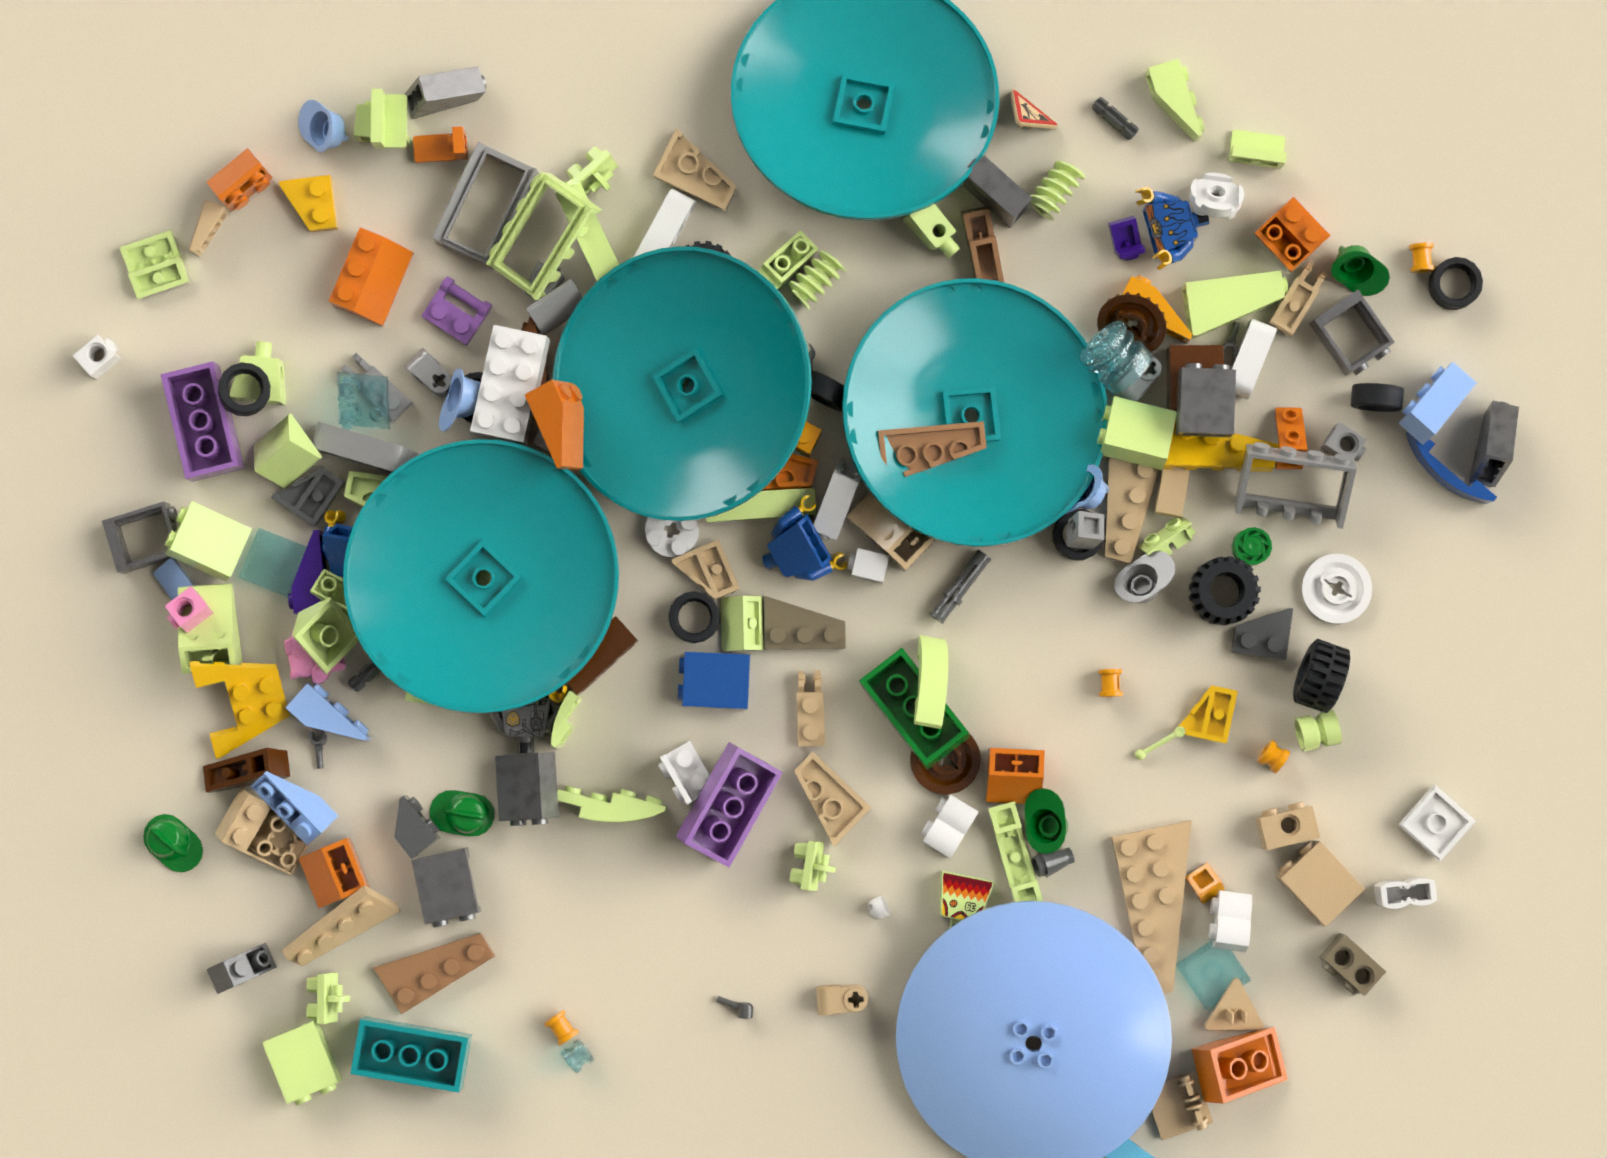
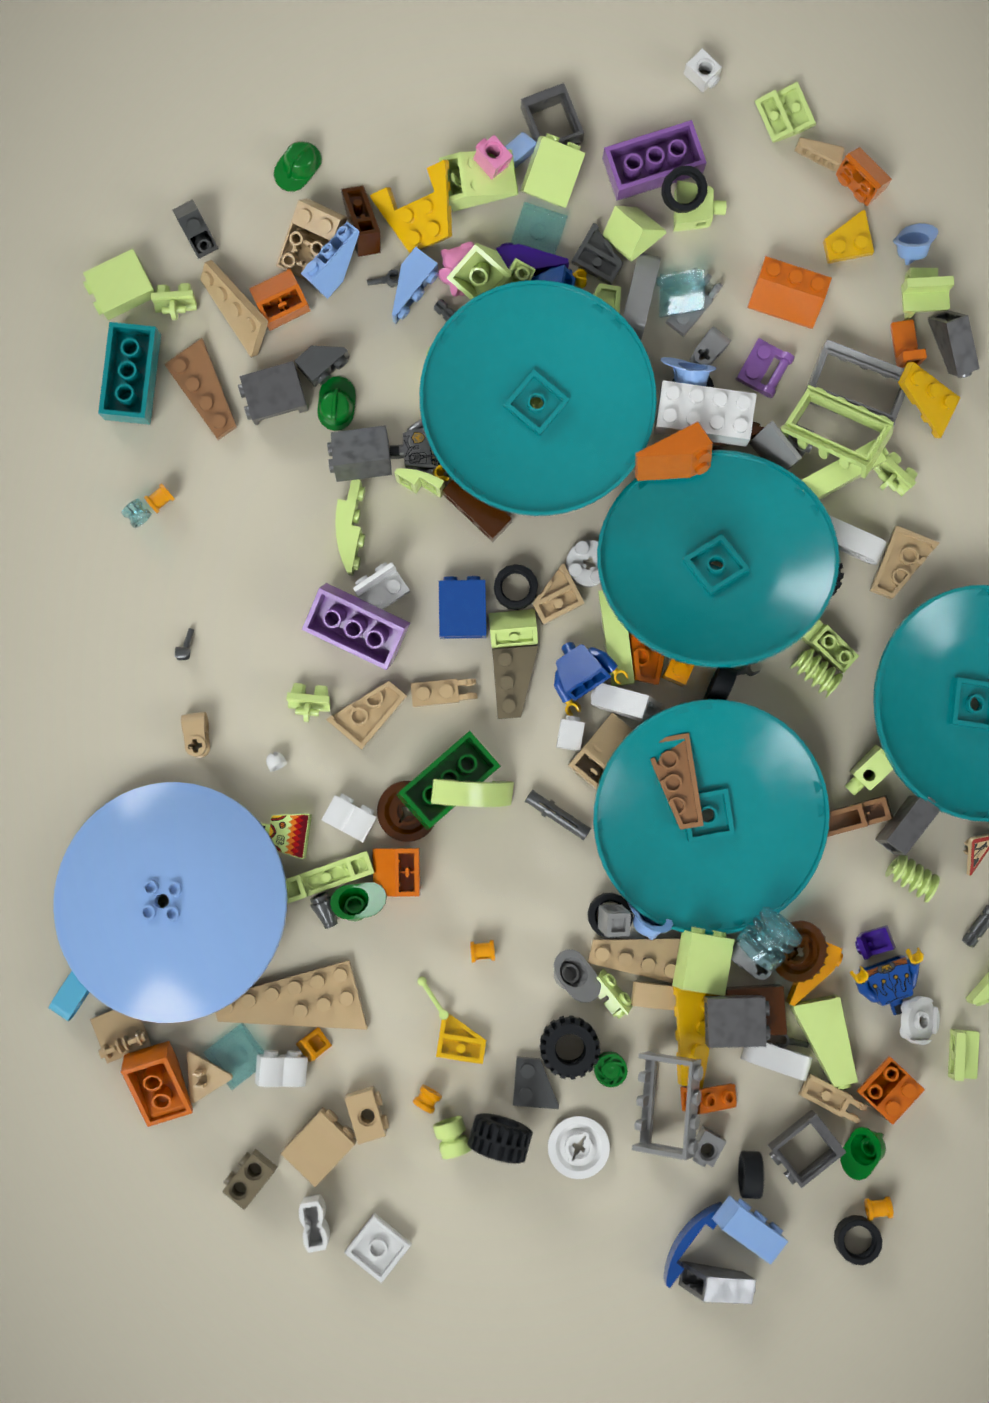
camera: 85 degrees right, 0 degrees up
(507, 124) = (930, 396): none -> yellow wing

